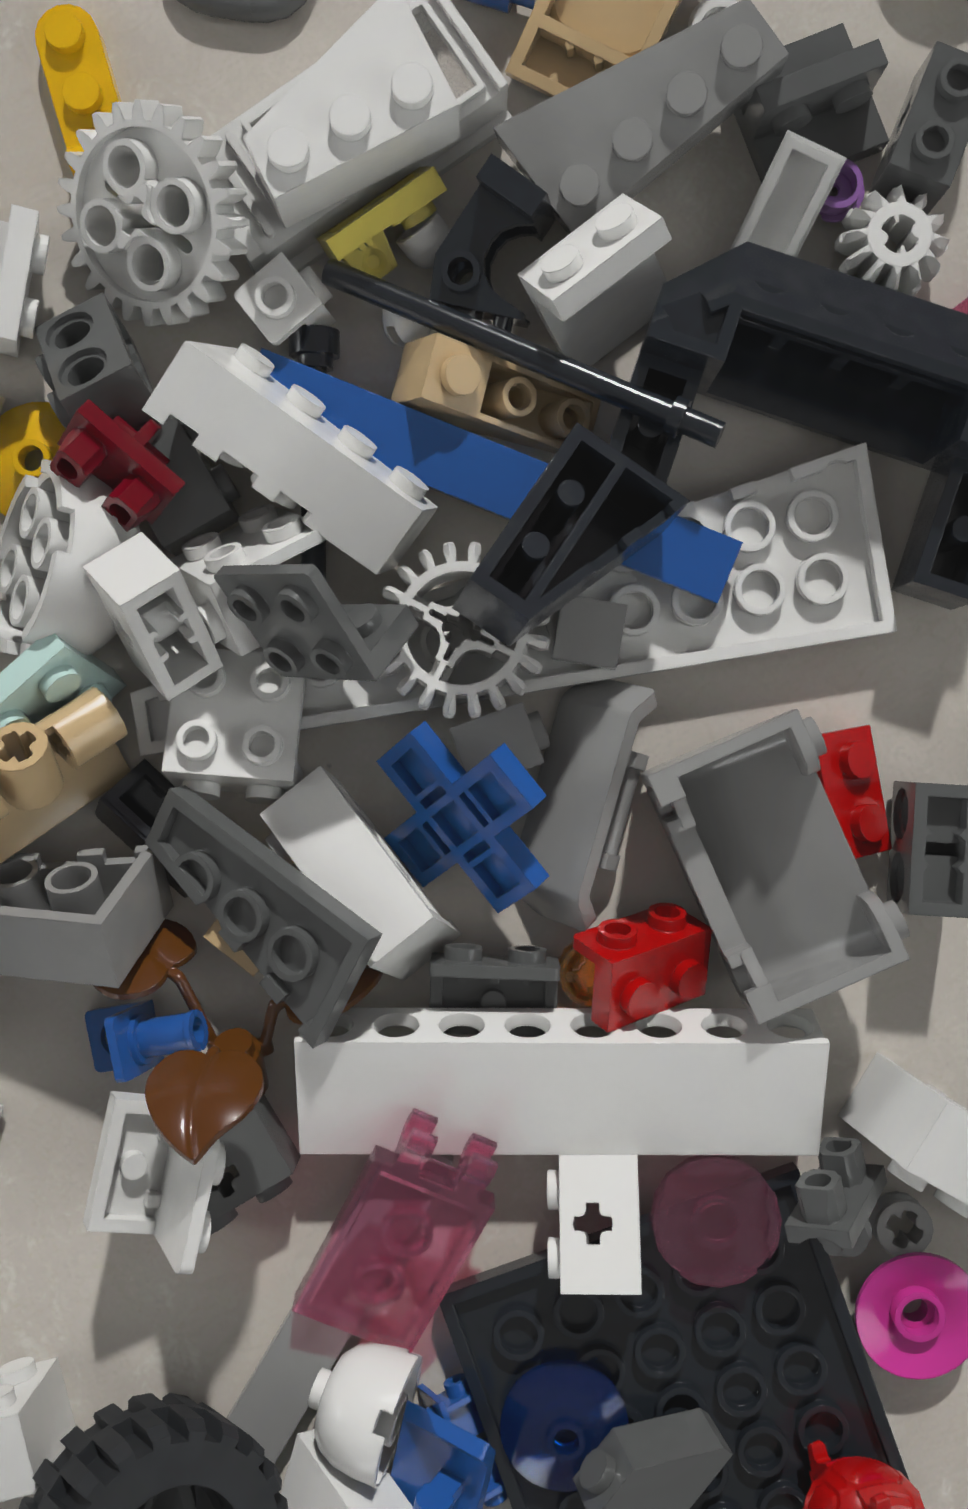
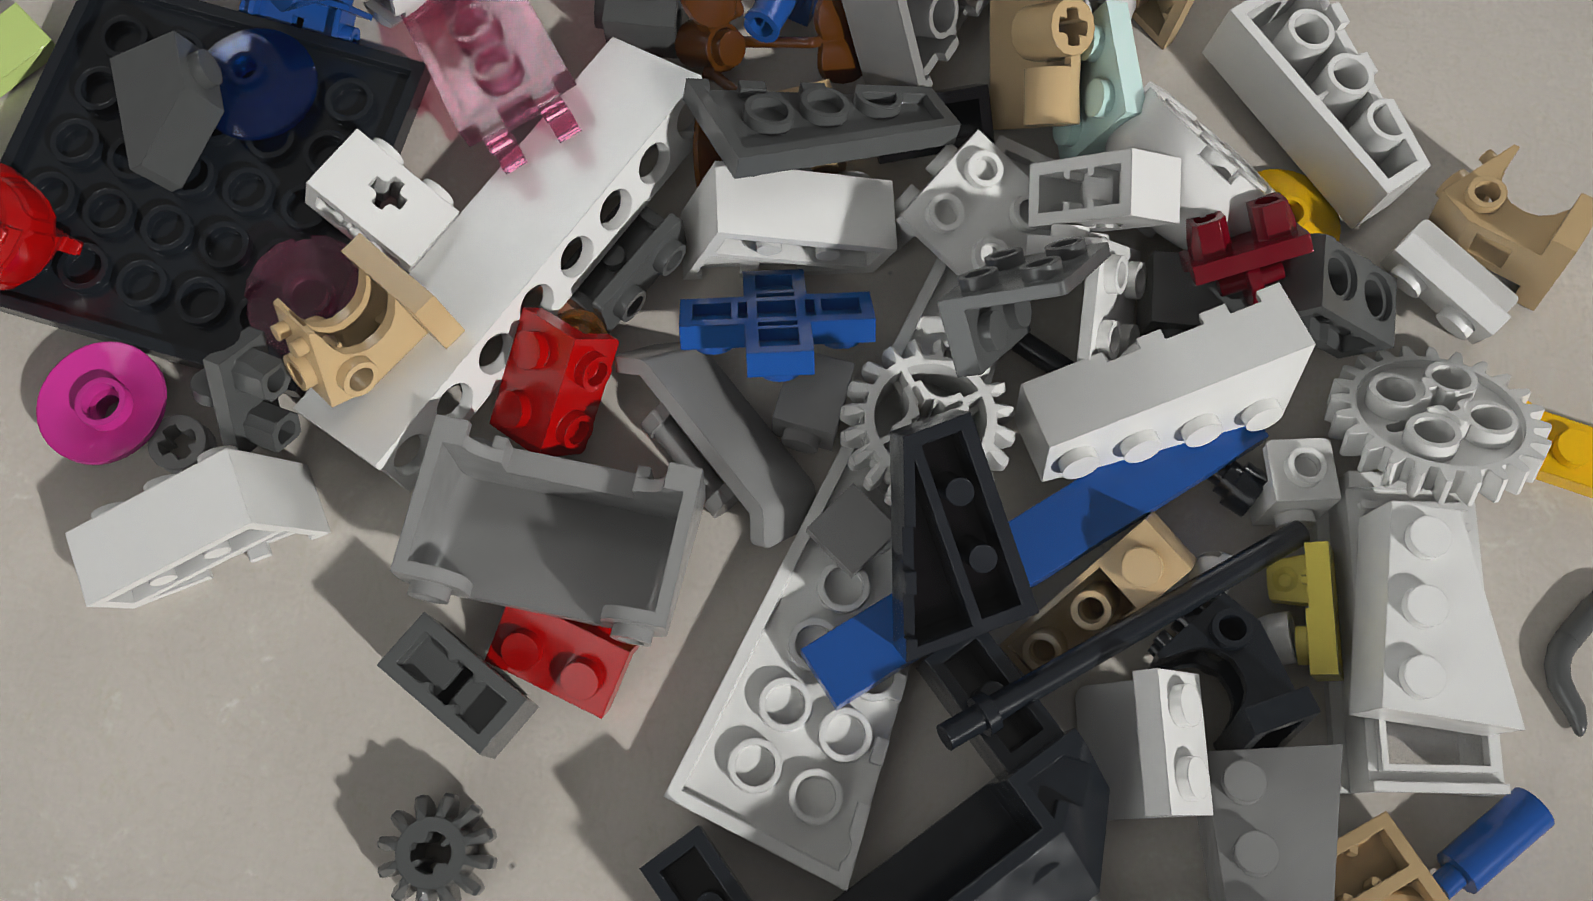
camera: 120 degrees right, 15 degrees down
(760, 1165) = (367, 337): none -> tan tile

